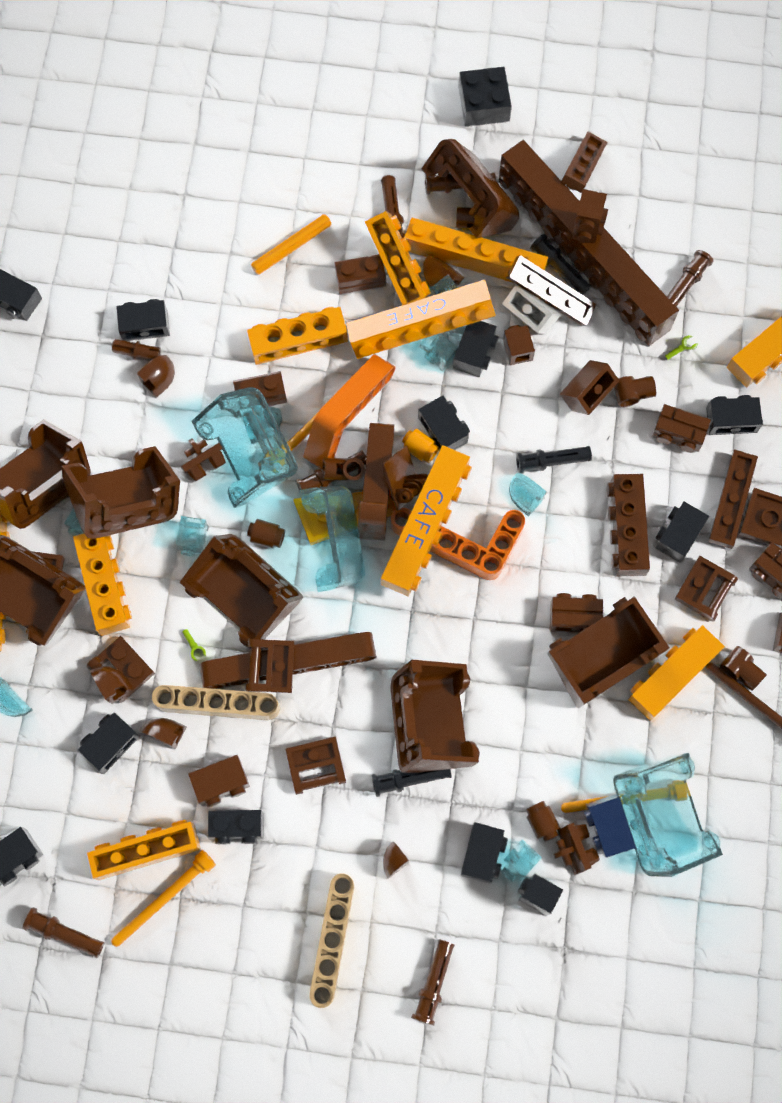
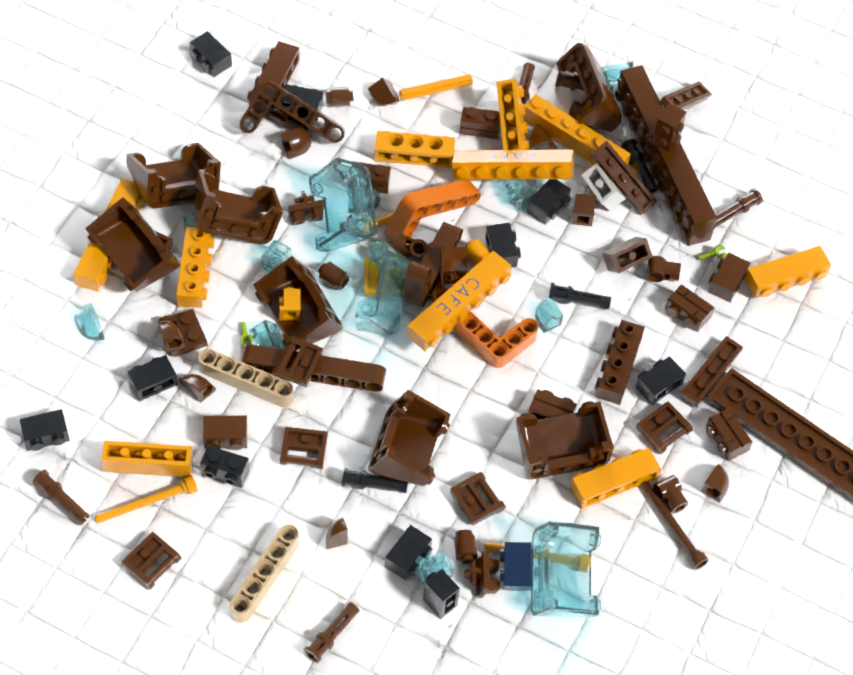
camera: 15 degrees right, 15 degrees down
(98, 300) = (278, 69): none -> reddish brown brick
(137, 340) = (292, 110): none -> reddish brown beam
(184, 297) = (339, 96): none -> reddish brown brick
(188, 971) = (146, 555): none -> reddish brown plate
(220, 640) = (266, 335): none -> clear light blue brick
(231, 590) = (290, 305): none -> light orange brick
(235, 273) = (384, 92): none -> reddish brown brick
(484, 96) = (627, 33): black brick -> none
(490, 151) = (613, 71): none -> clear light blue brick
(529, 762) = (472, 502): none -> reddish brown plate
(710, 372) = (728, 277): none -> reddish brown brick
(734, 415) = (735, 313): black brick -> none

